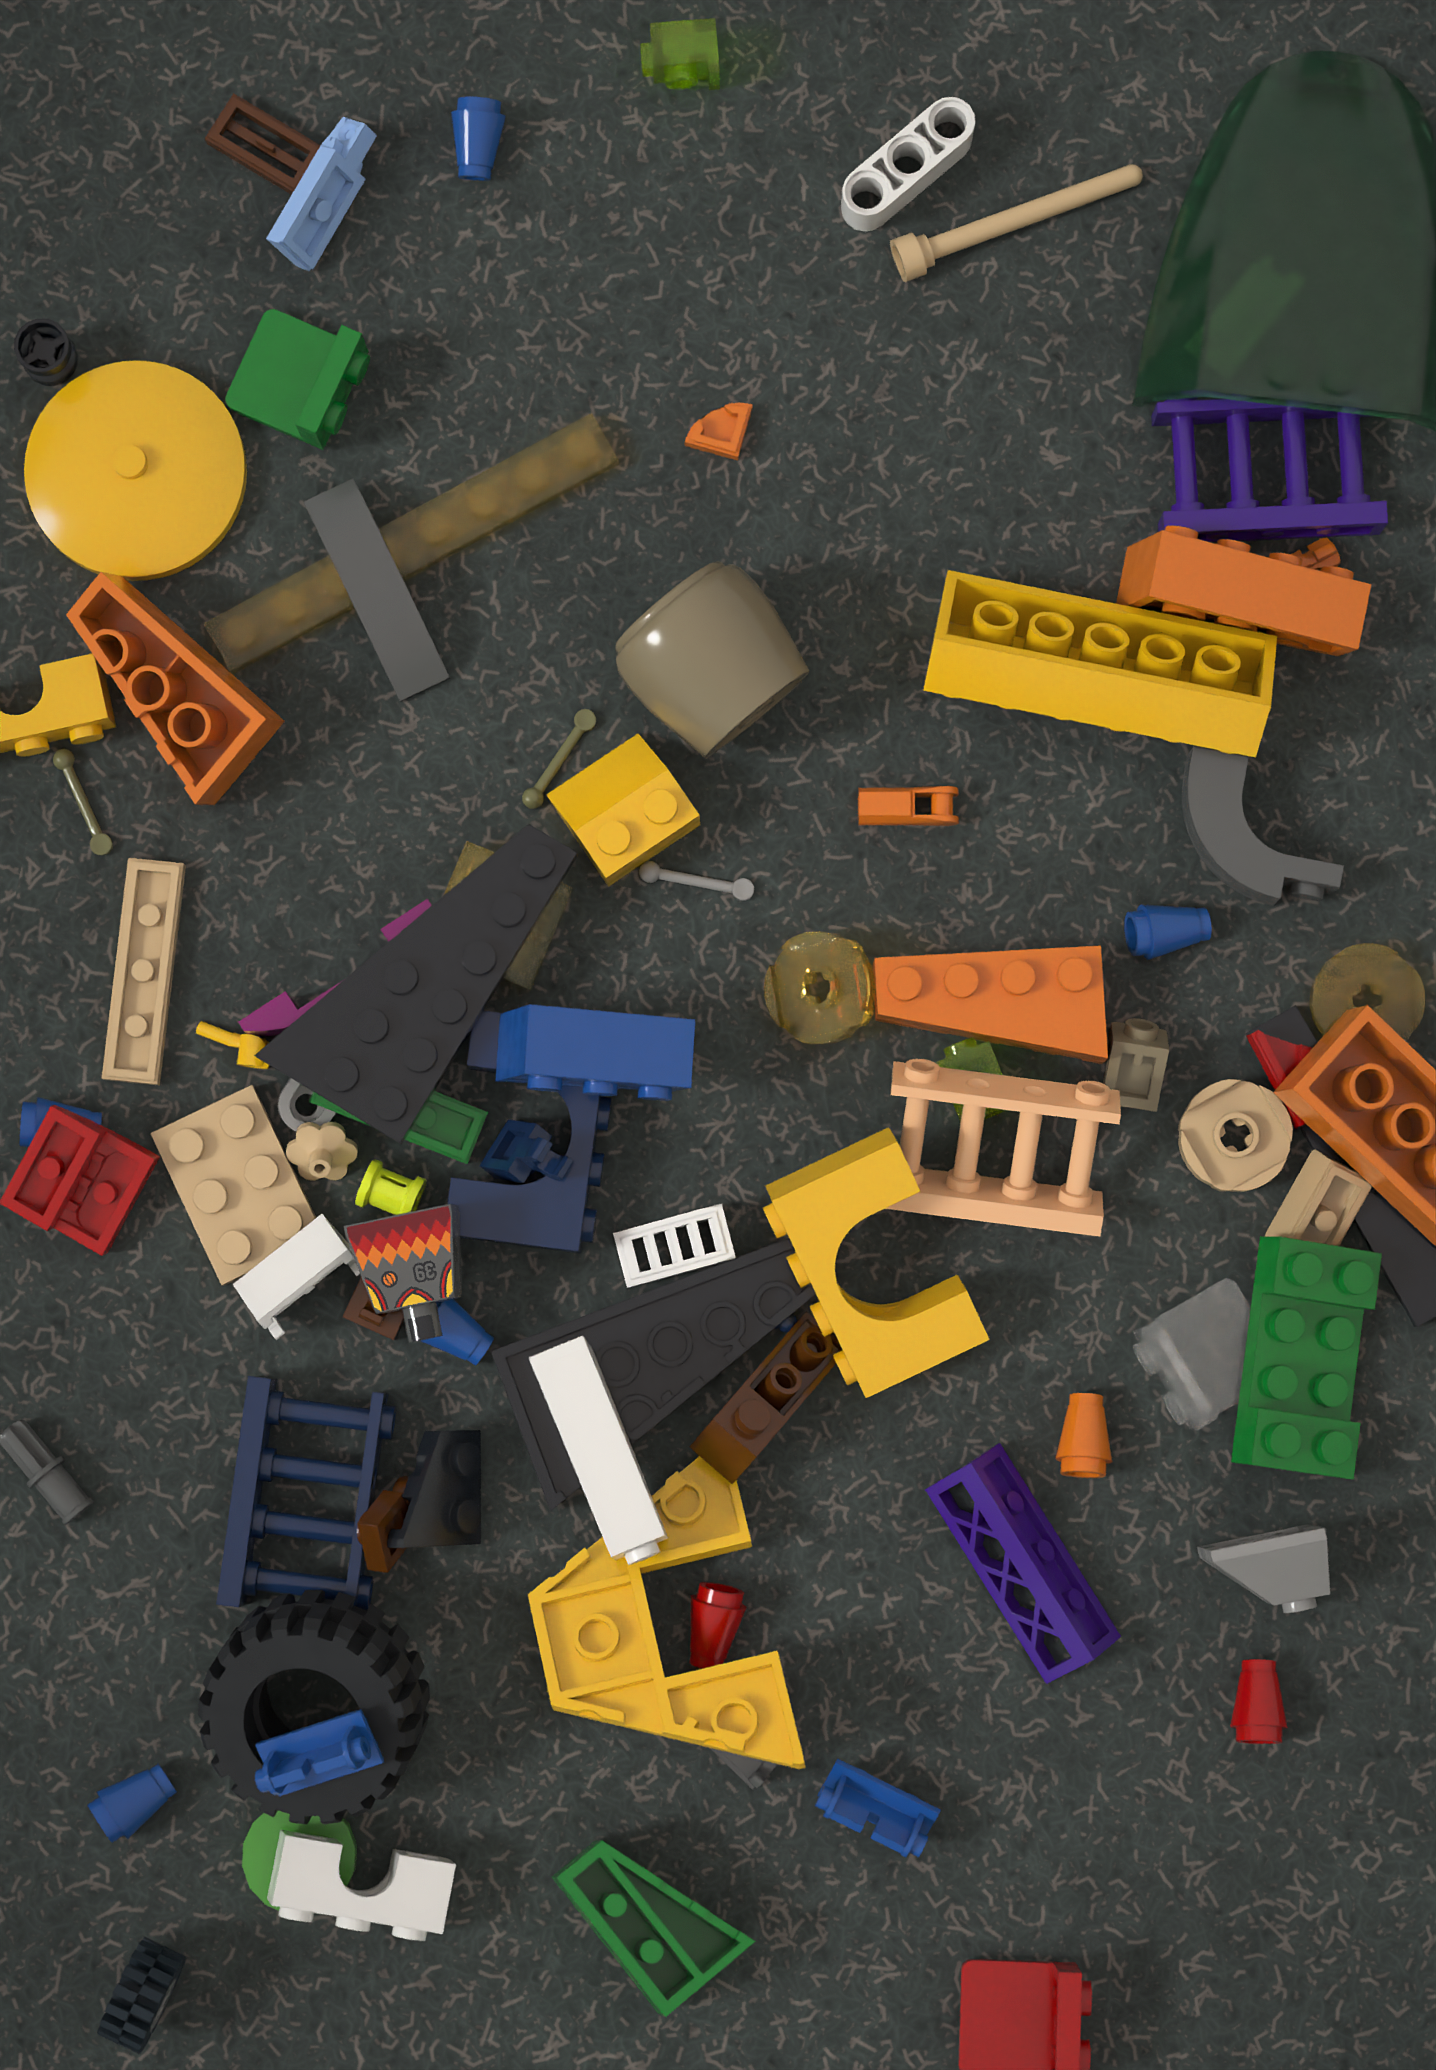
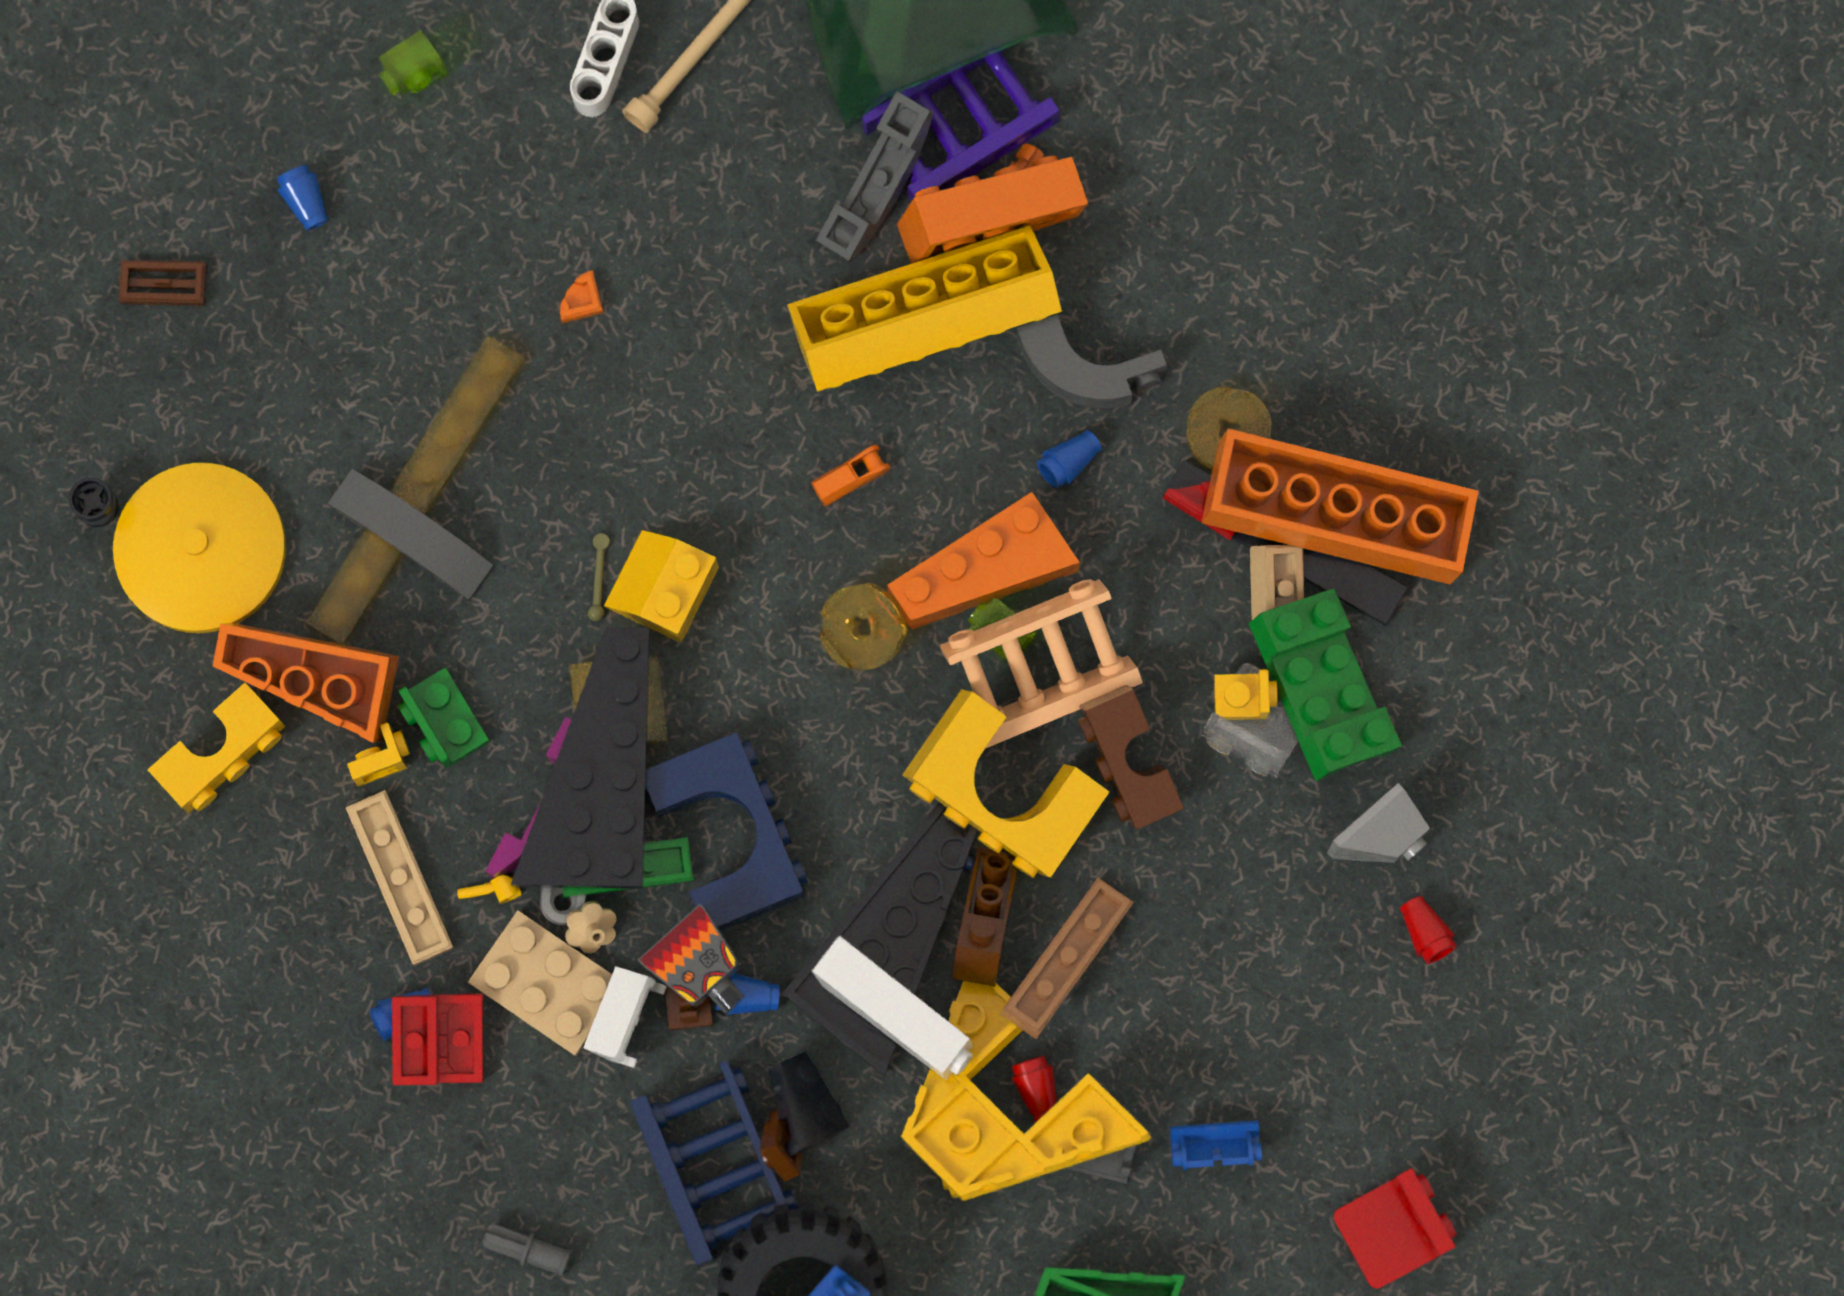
camera: 30 degrees left, 5 degrees down
(100, 843) = (319, 809): olive hinge -> none
(188, 828) = (376, 764): none -> yellow bracket
(293, 820) = (444, 719): none -> green bracket
(298, 377) = (275, 423): green bracket -> none
(323, 195) = (222, 292): light blue hinge -> none
(389, 1190) = (650, 926): neon yellow bush -> none
(522, 1151) = (725, 849): dark blue plate -> none
(595, 1051) = (736, 749): blue wedge -> none
(710, 657) = (663, 450): dark tan piece -> none
(720, 1234) = (891, 827): white slope -> none
(741, 889) = (771, 594): light grey hinge -> none
(831, 1499) = (1066, 958): none -> medium nougat tile
(1031, 1559) = (1222, 916): dark purple fence -> none
(1038, 1265) = (1112, 724): none -> reddish brown arch
(1084, 1438) = (1211, 823): orange cone -> none
(1137, 486) = (880, 180): none -> dark grey slope
(1137, 1062) = (1101, 556): dark tan bracket -> none
(1207, 1317) = (1244, 695): none -> yellow bracket
(1242, 1104) = (1187, 544): tan plate -> none

